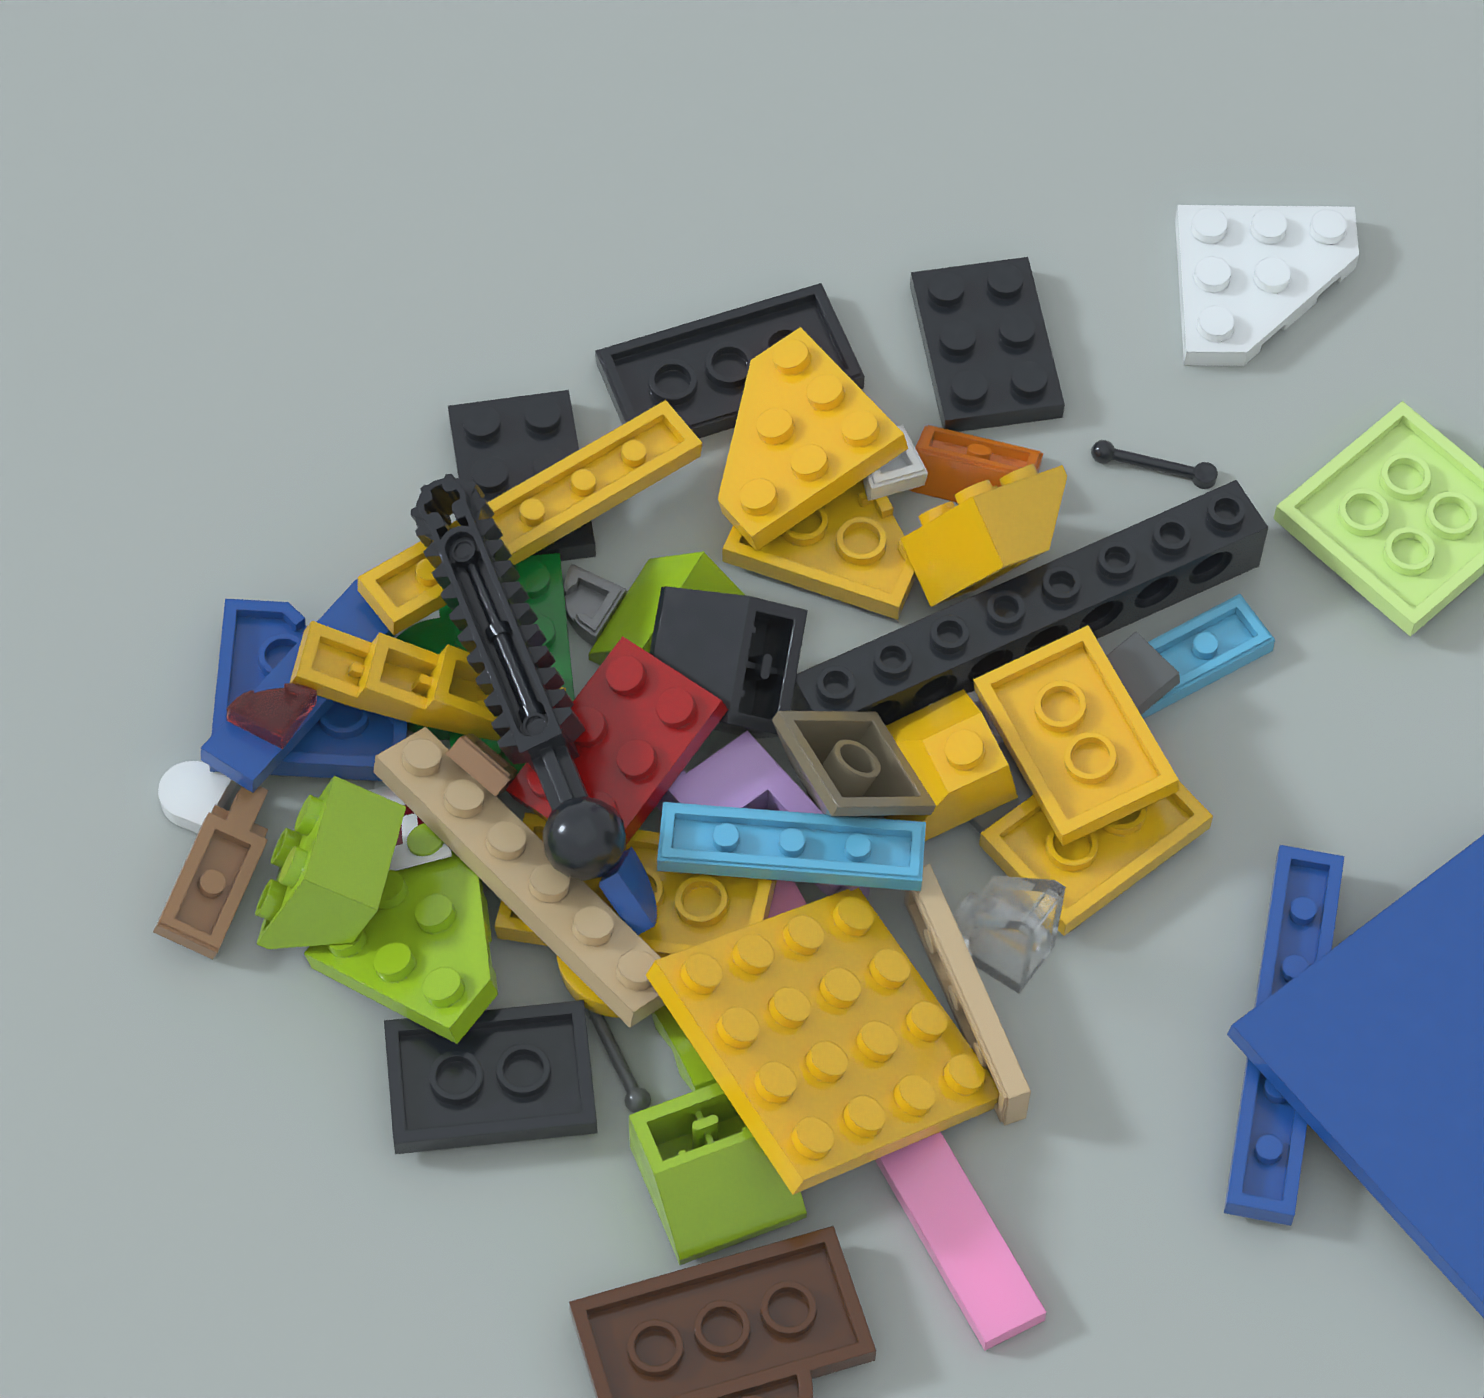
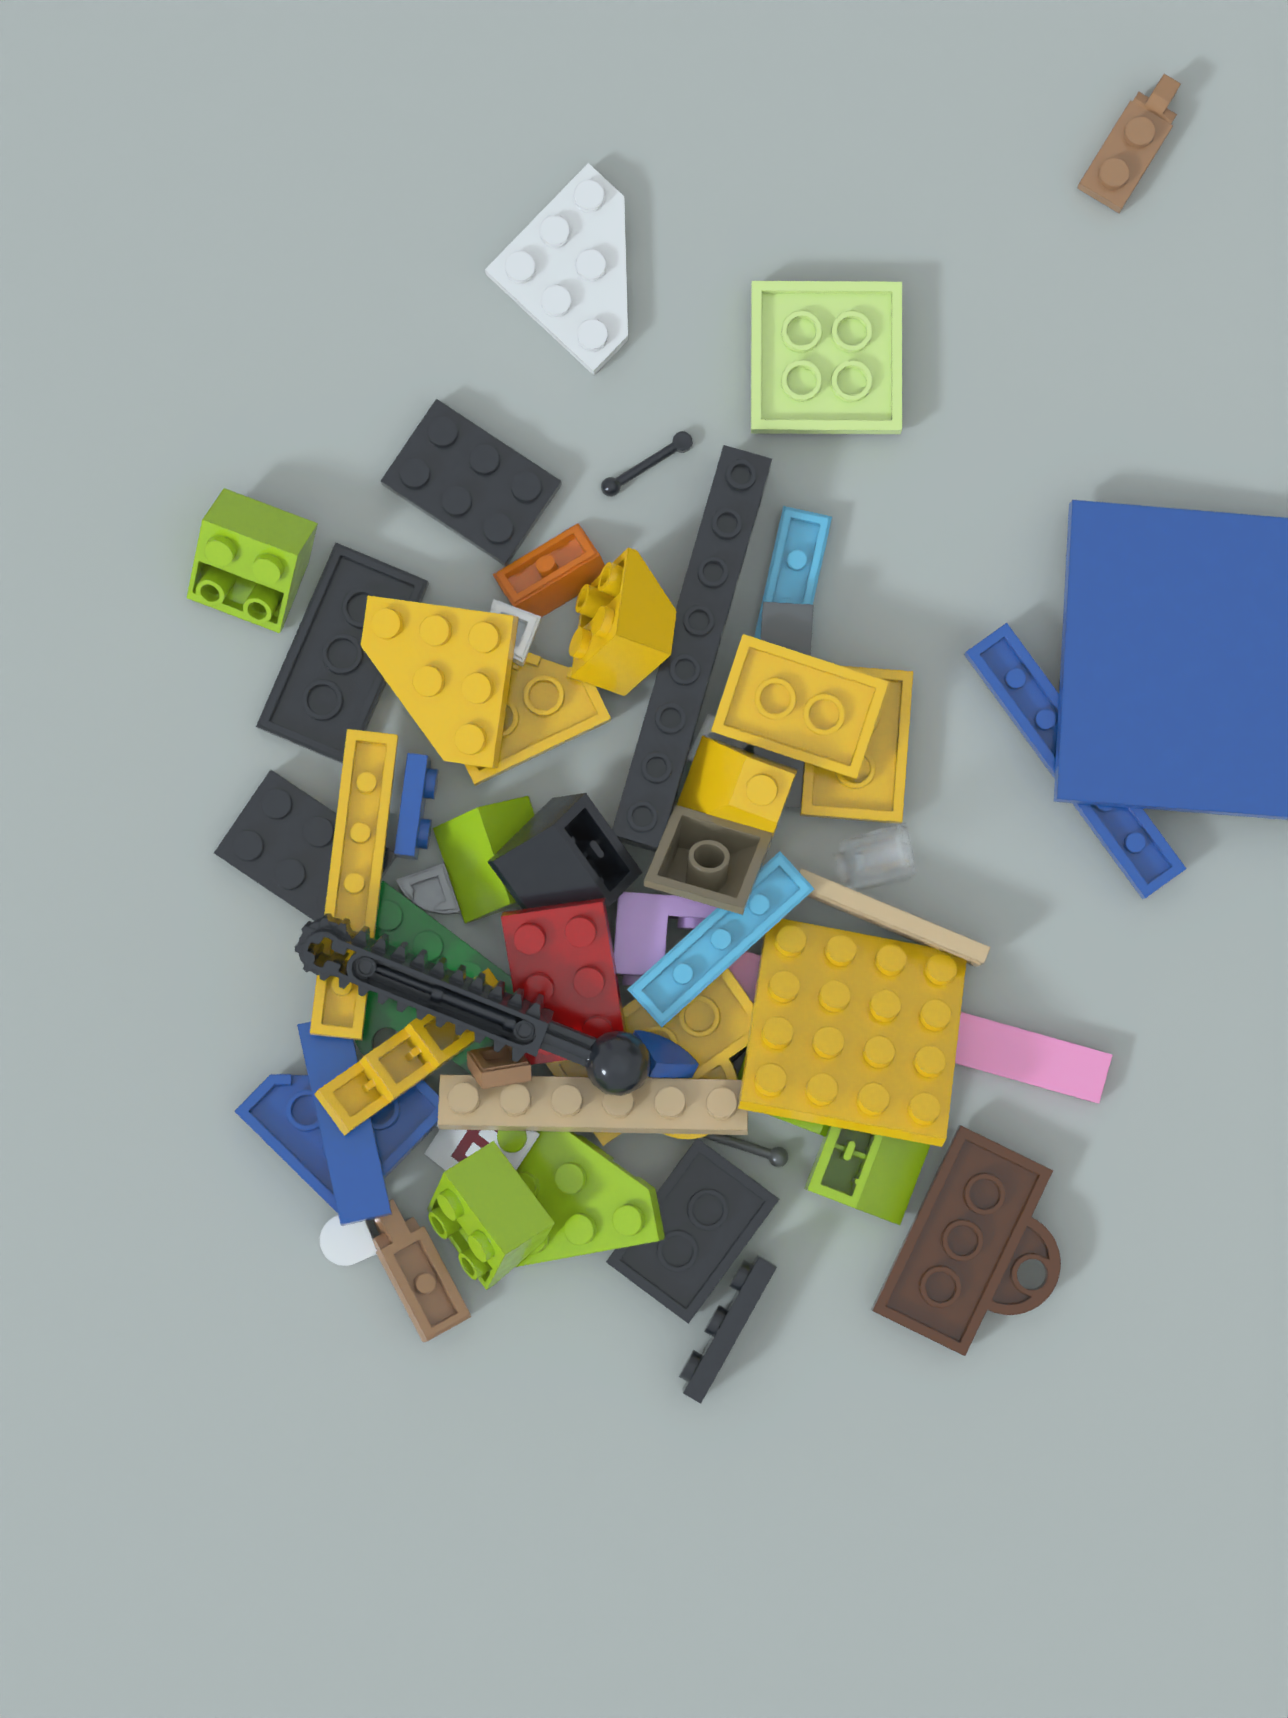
camera: 45 degrees left, 25 degrees up
(273, 712) = (355, 1161): clear red tile -> none
(424, 1185) = (726, 1327): none -> black plate
(640, 526) = (413, 828): none -> blue plate
(736, 229) = (250, 559): none -> lime slope

